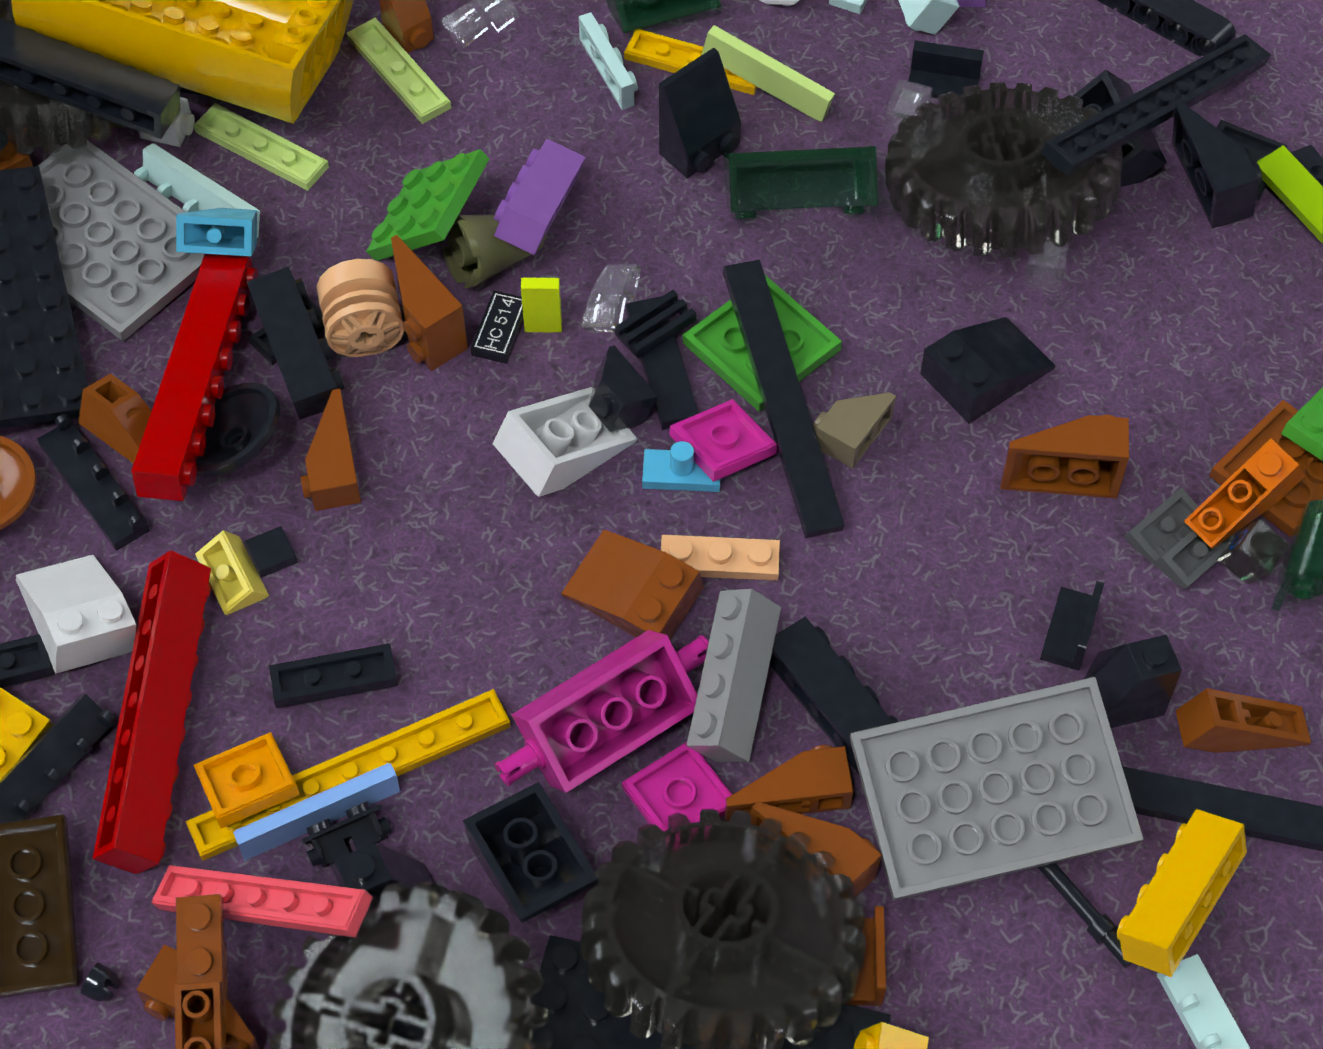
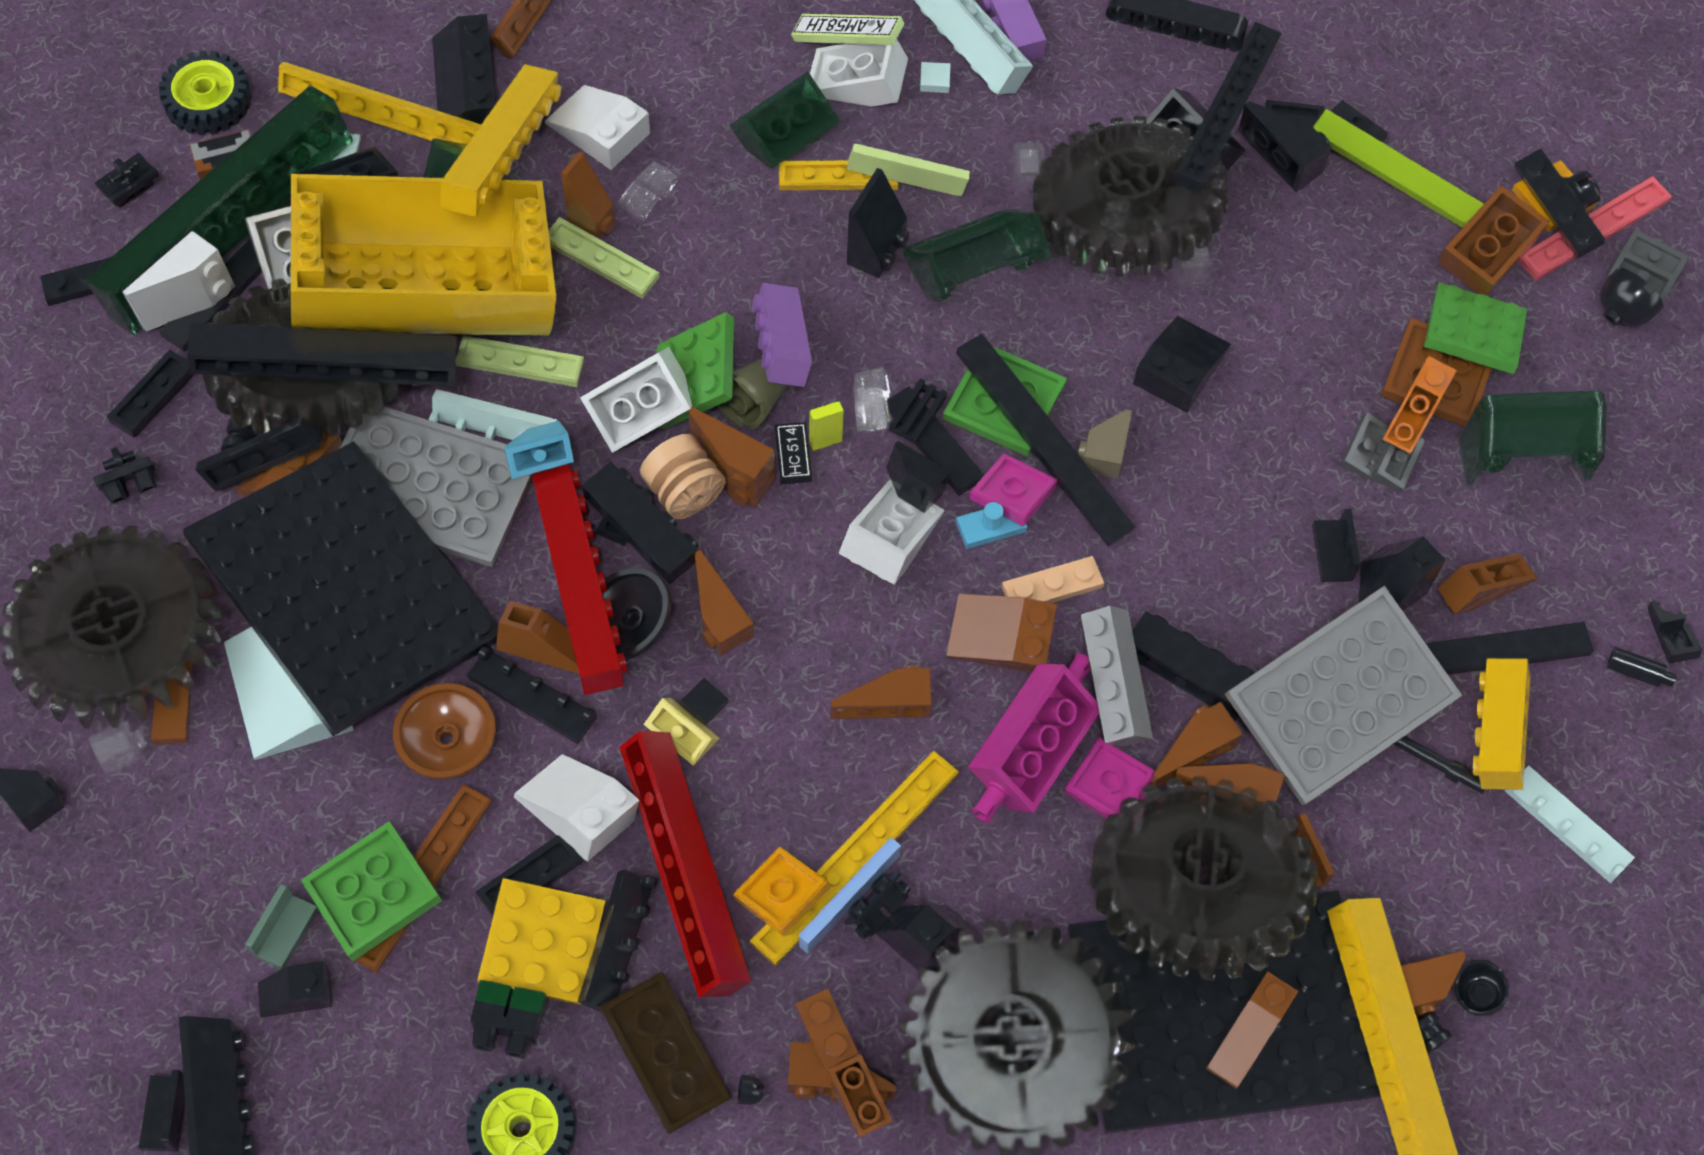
camera: 25 degrees left, 5 degrees up
(269, 900) = (857, 979): coral tile -> none
(332, 675) = (806, 784): black plate -> none
(352, 212) = (639, 399): none -> white slope
(473, 612) = (893, 695): none -> dark orange slope
(529, 852) = (1032, 870): black slope -> none
(607, 60) = (771, 197): light aqua plate -> none
(945, 67) = (1041, 122): black panel -> none
(1071, 458) = (1289, 416): dark orange slope -> none
(1253, 552) = (1442, 446): clear smoke brick -> none

